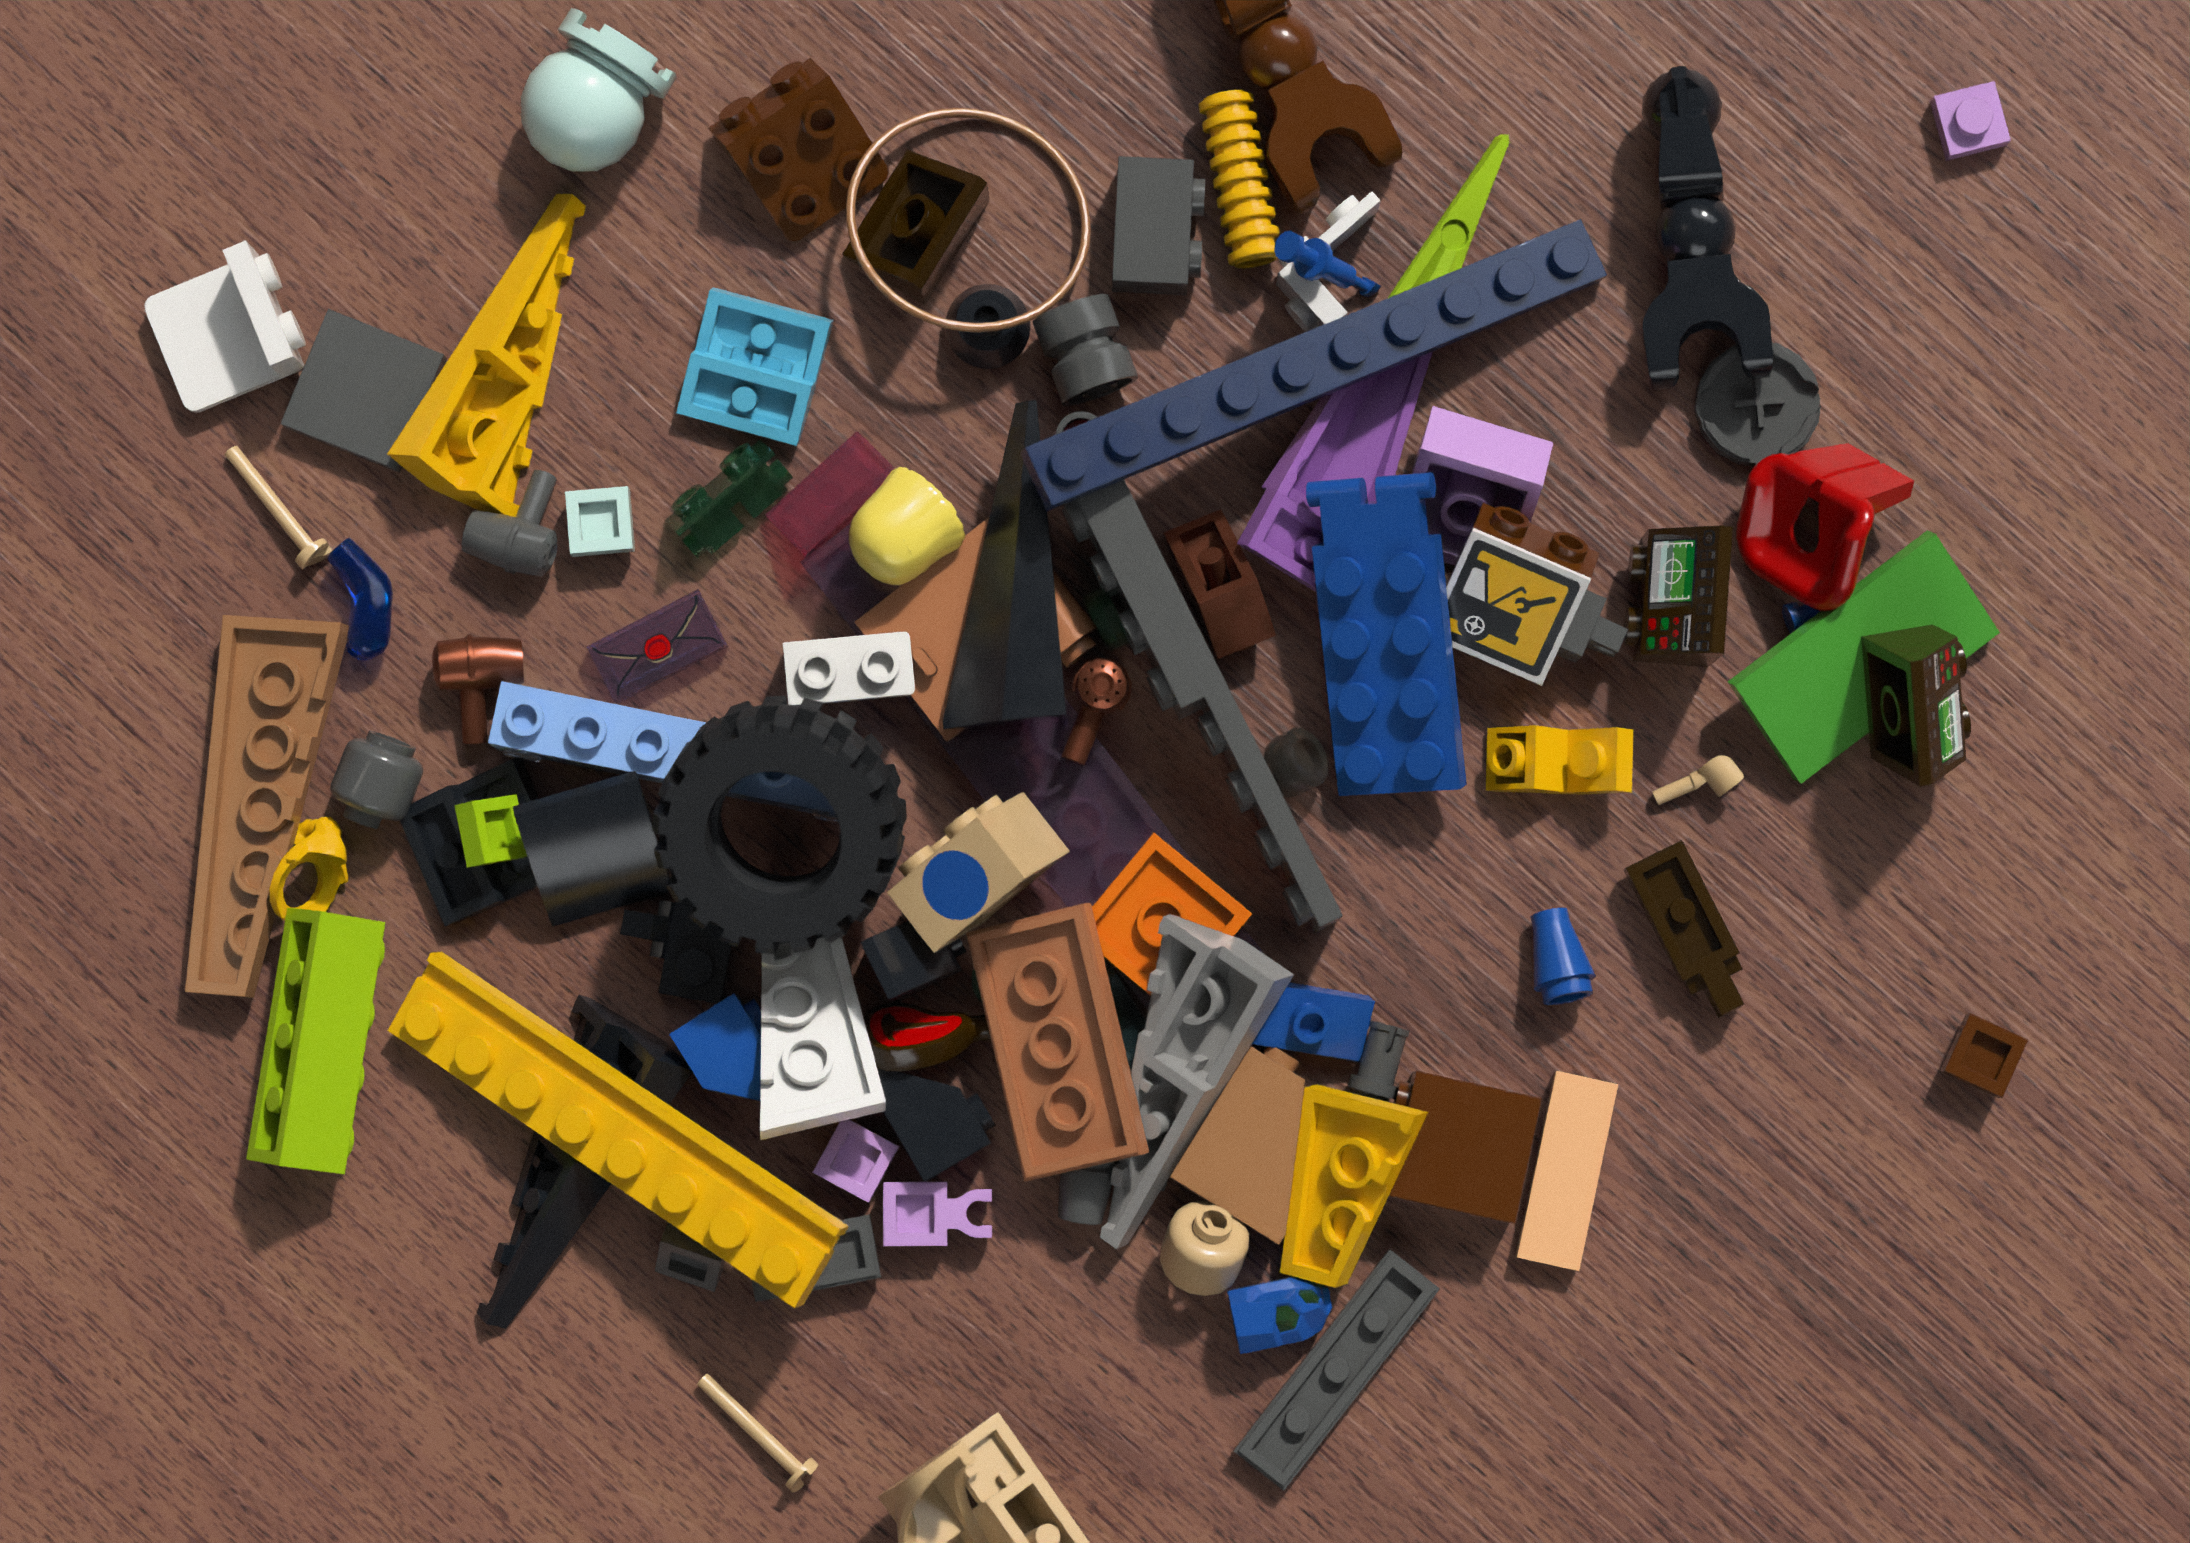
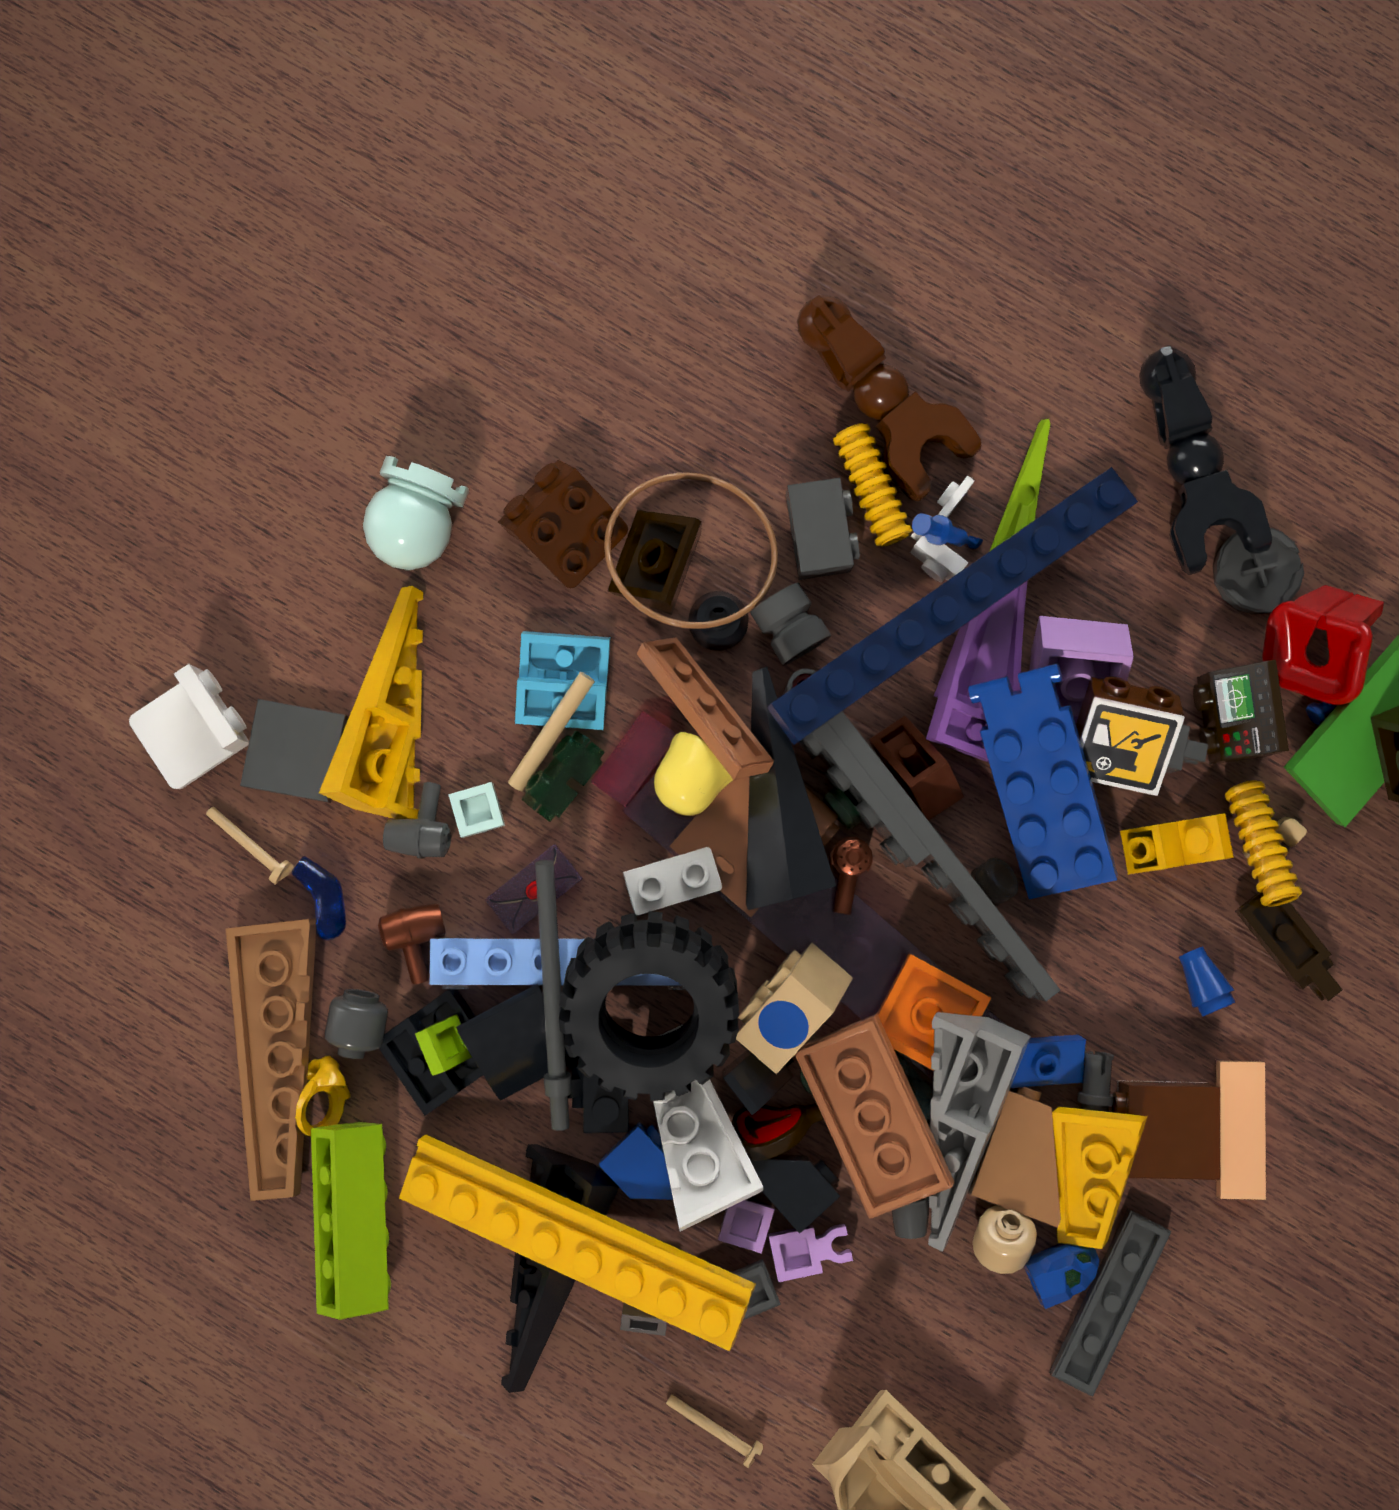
camera: 15 degrees left, 0 degrees up
(636, 909) = (557, 1080): none -> dark grey bar
(724, 433) = (551, 731): none -> tan bar
(940, 440) = (705, 708): none -> nougat tile
(1675, 780) = (1263, 843): none -> yellow piece
(1970, 120) = (1361, 347): lavender plate -> none

